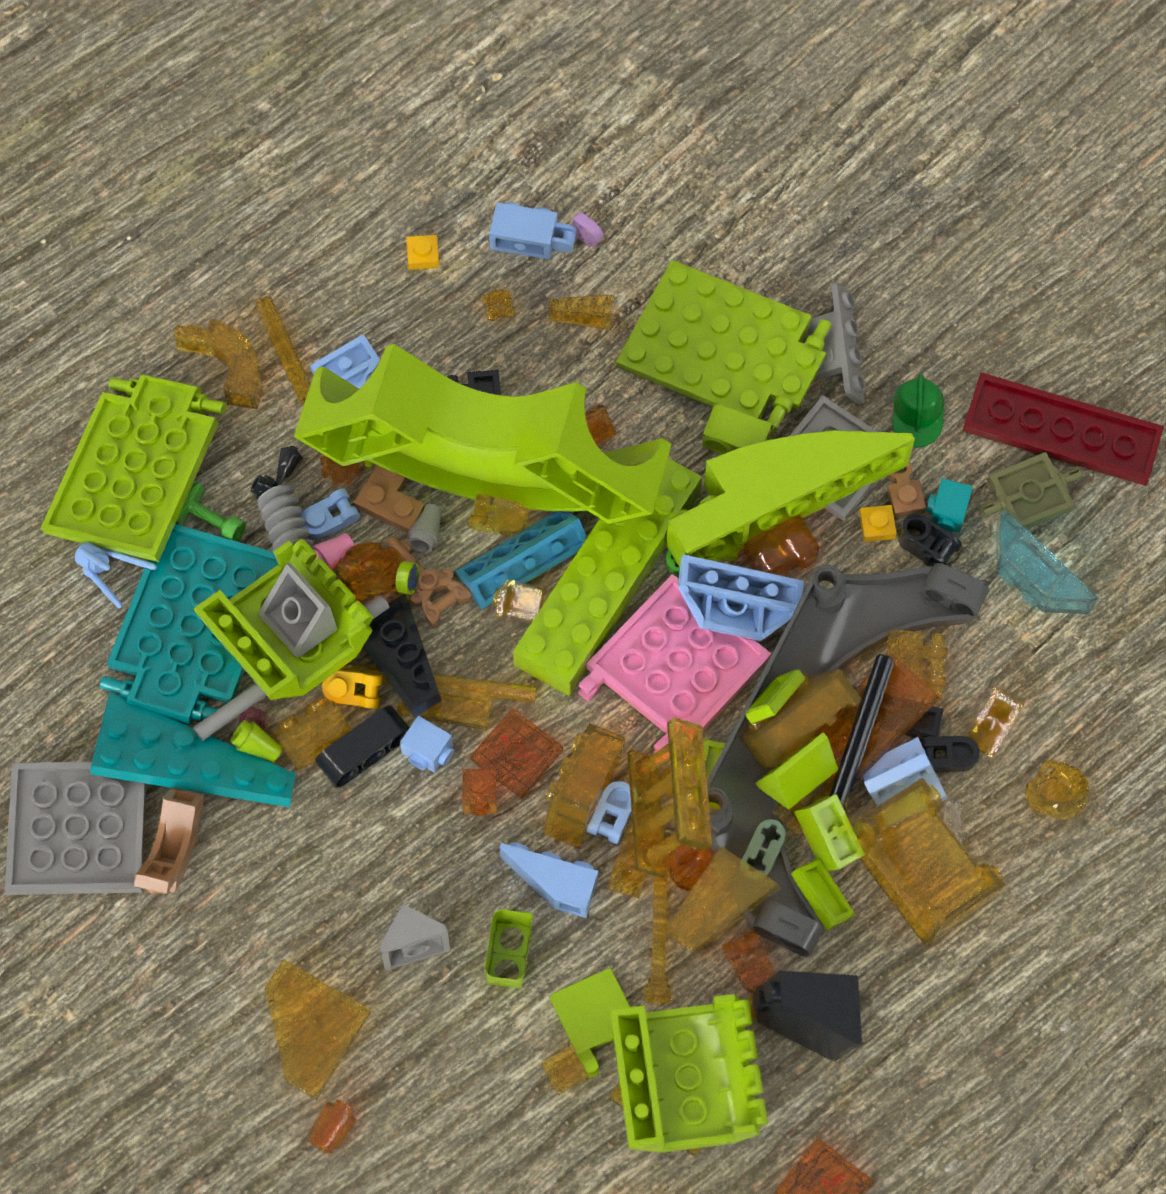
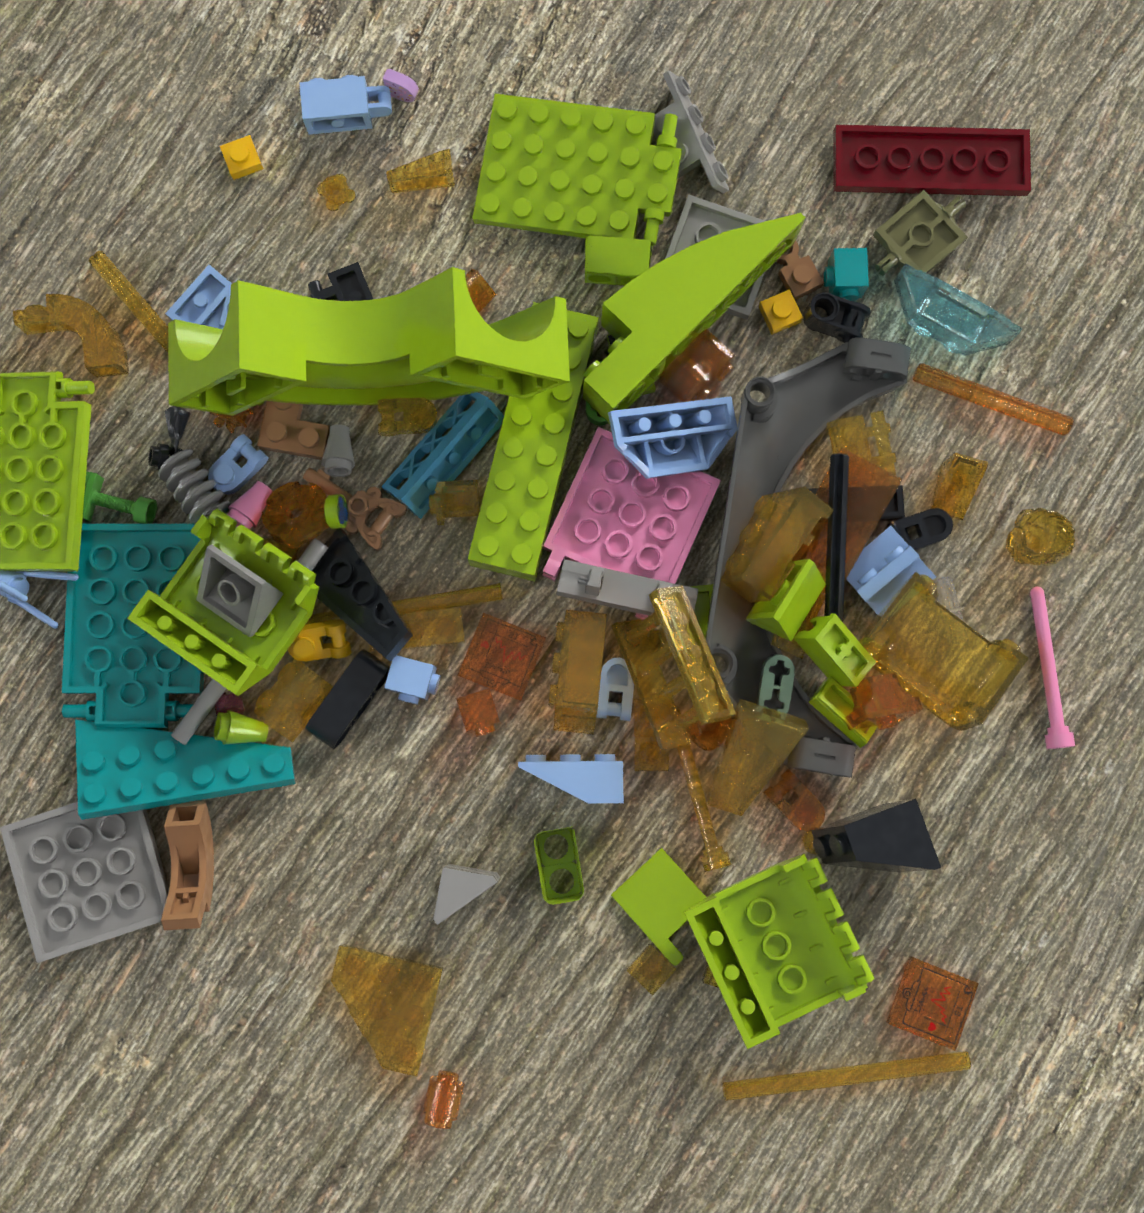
camera: 20 degrees left, 15 degrees up
(642, 717) = (617, 590): none -> light grey hinge
(774, 696) = (745, 531): lime tile -> none
(858, 894) = (881, 703): none -> clear orange brick
(919, 410) = (784, 182): green piece -> none
(1022, 978) = (1058, 733): none -> bright pink piece
(1055, 657) = (993, 399): none -> clear orange axle

